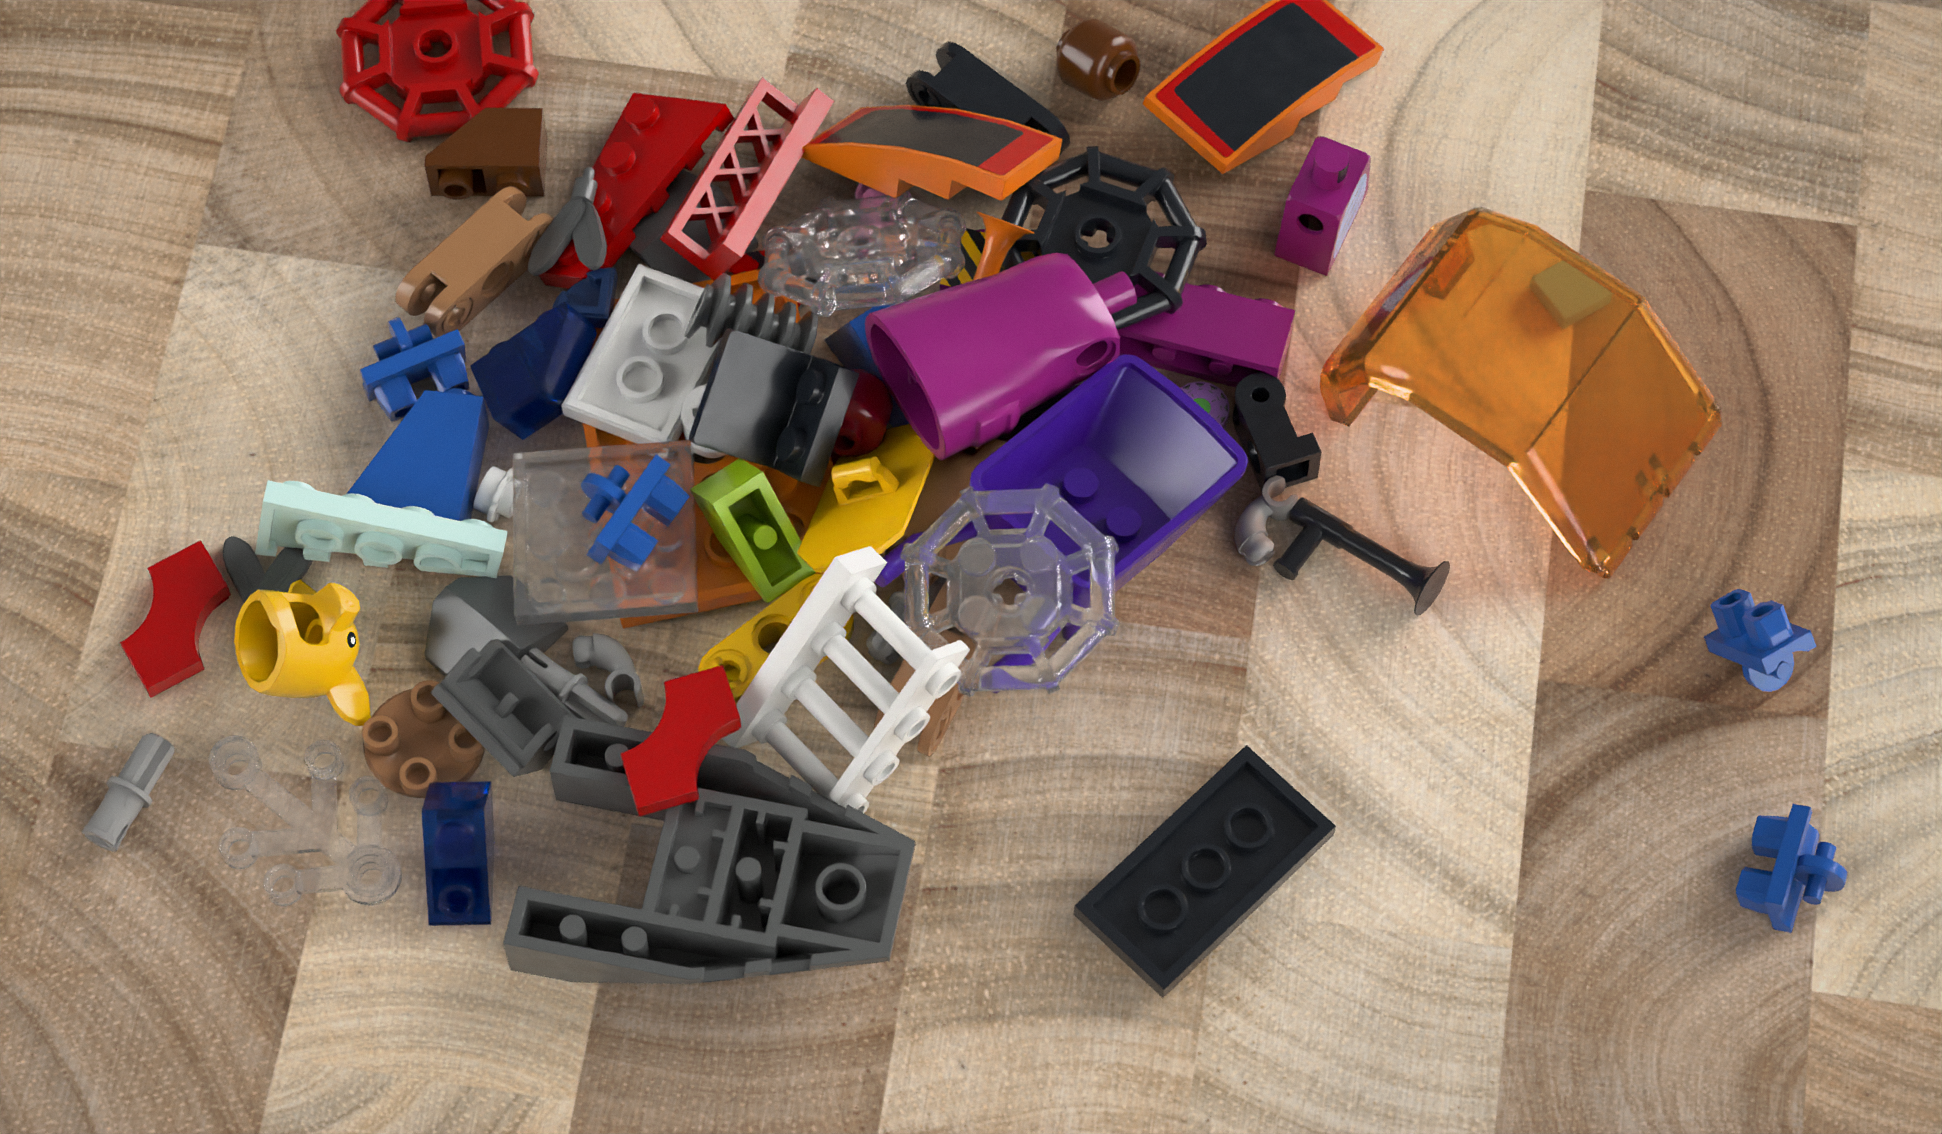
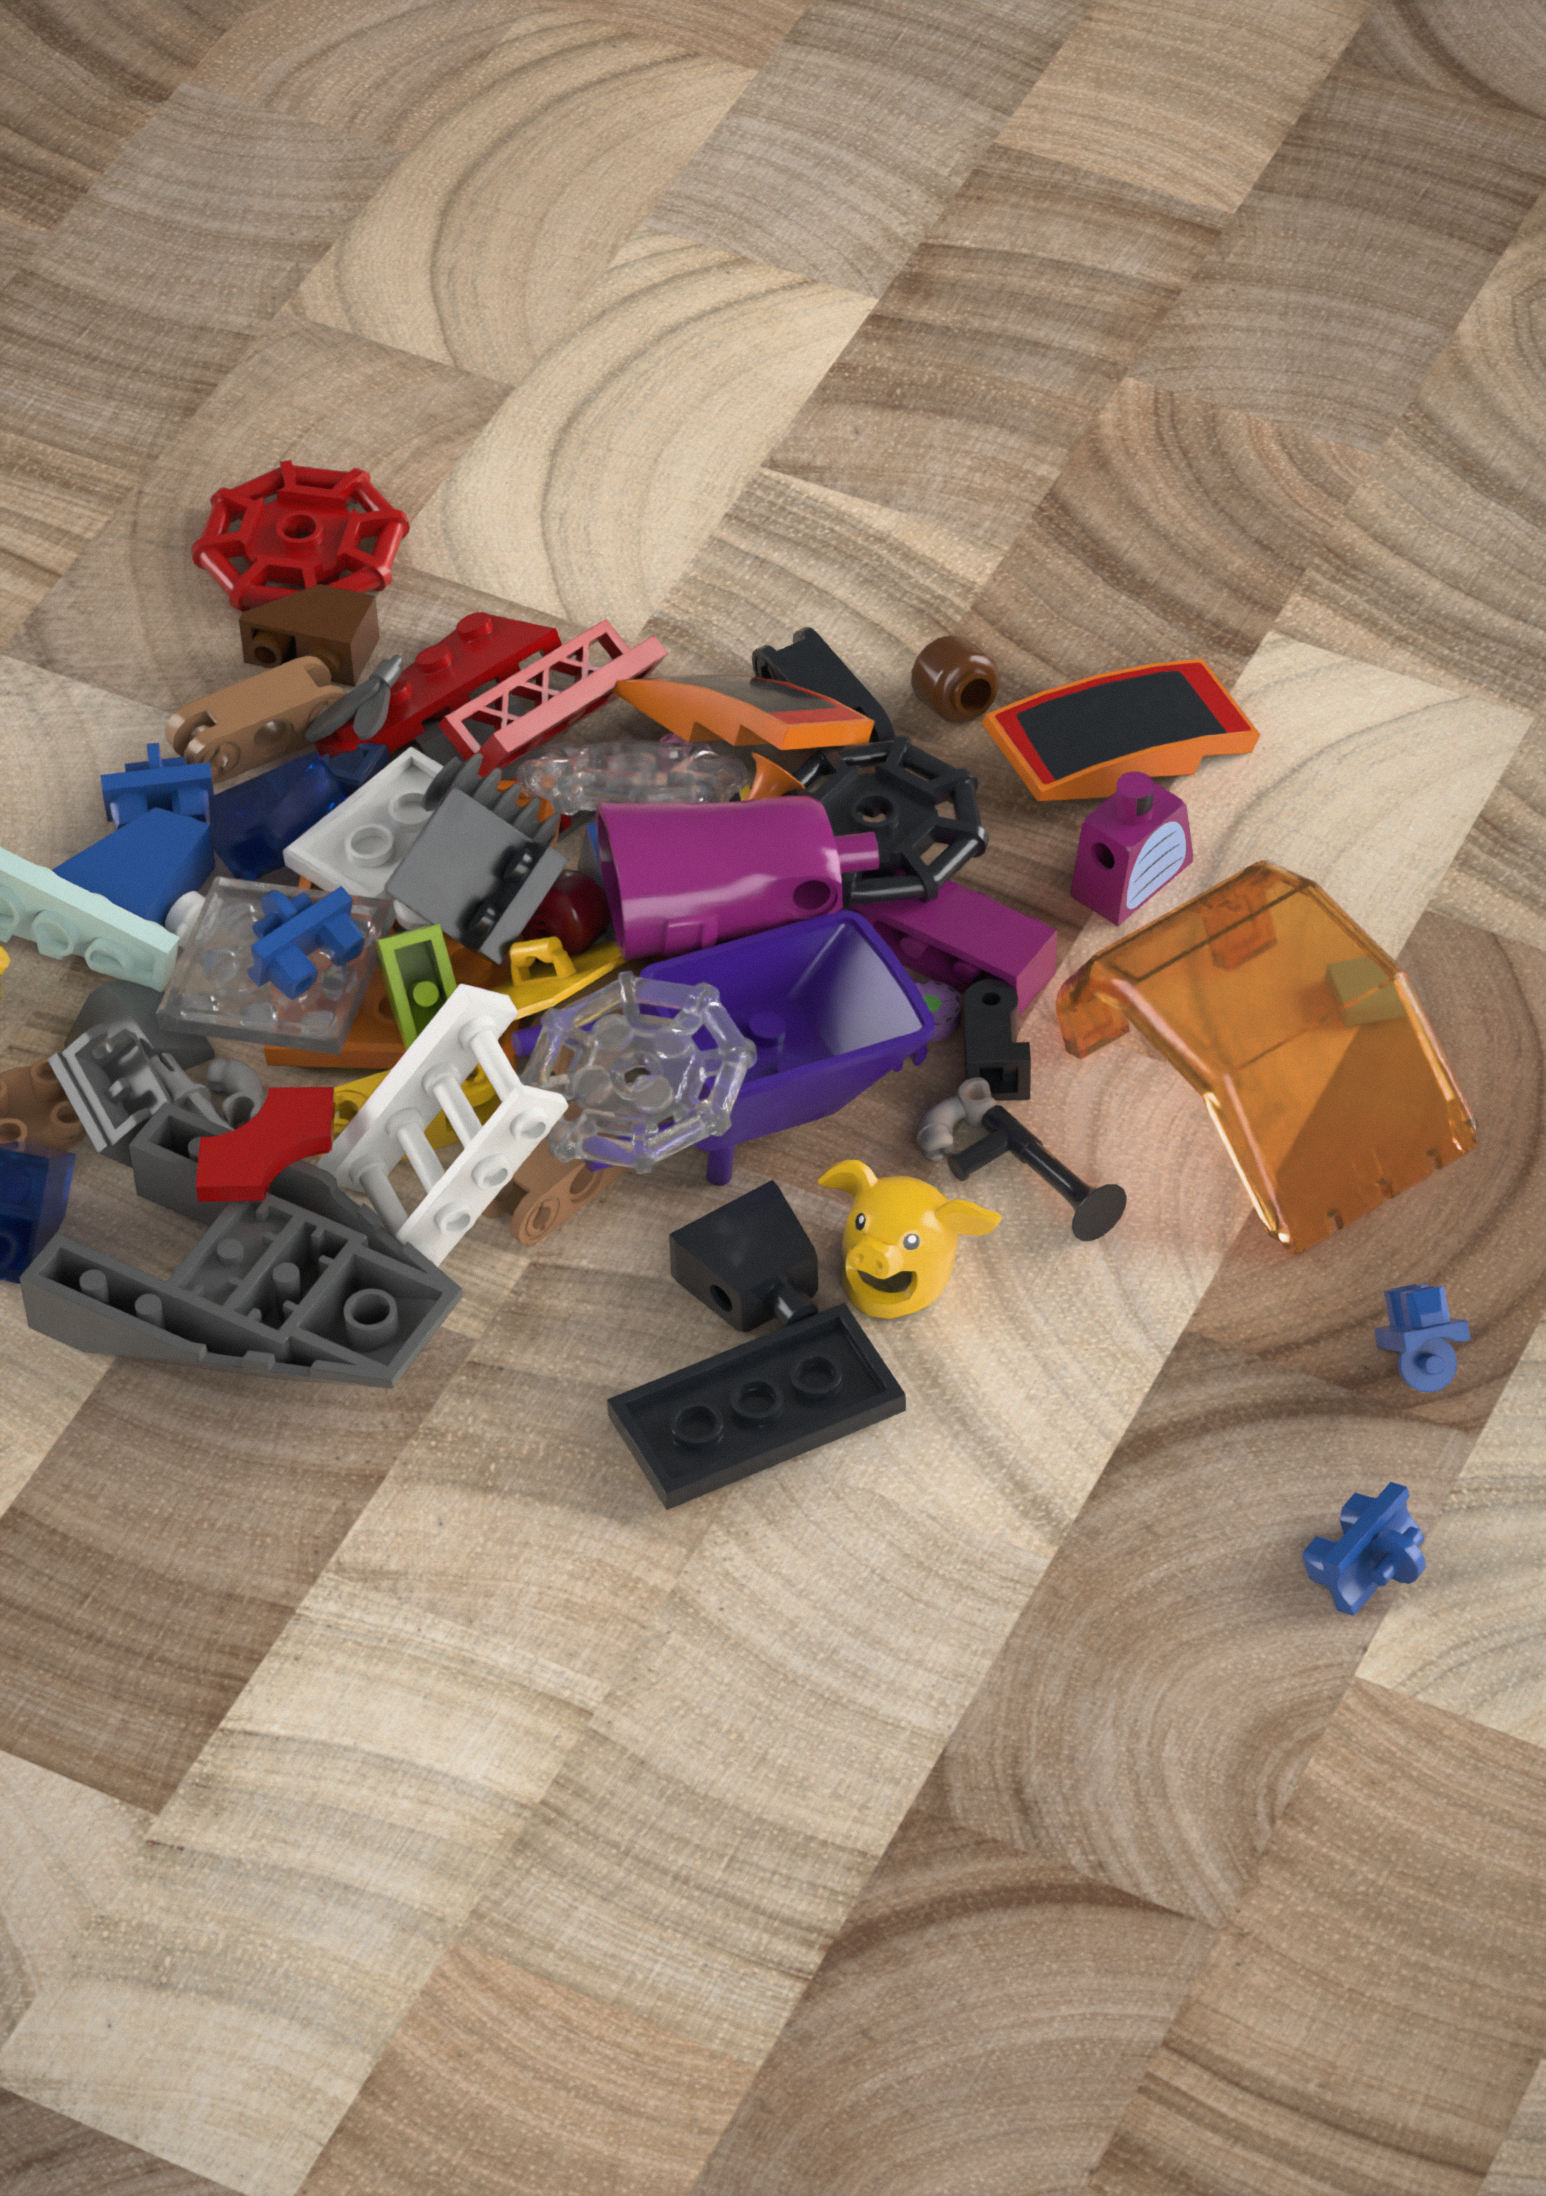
camera: 20 degrees right, 15 degrees down
(1147, 724) = (748, 1261): none -> black torso
(1274, 665) = (898, 1228): none -> yellow piece

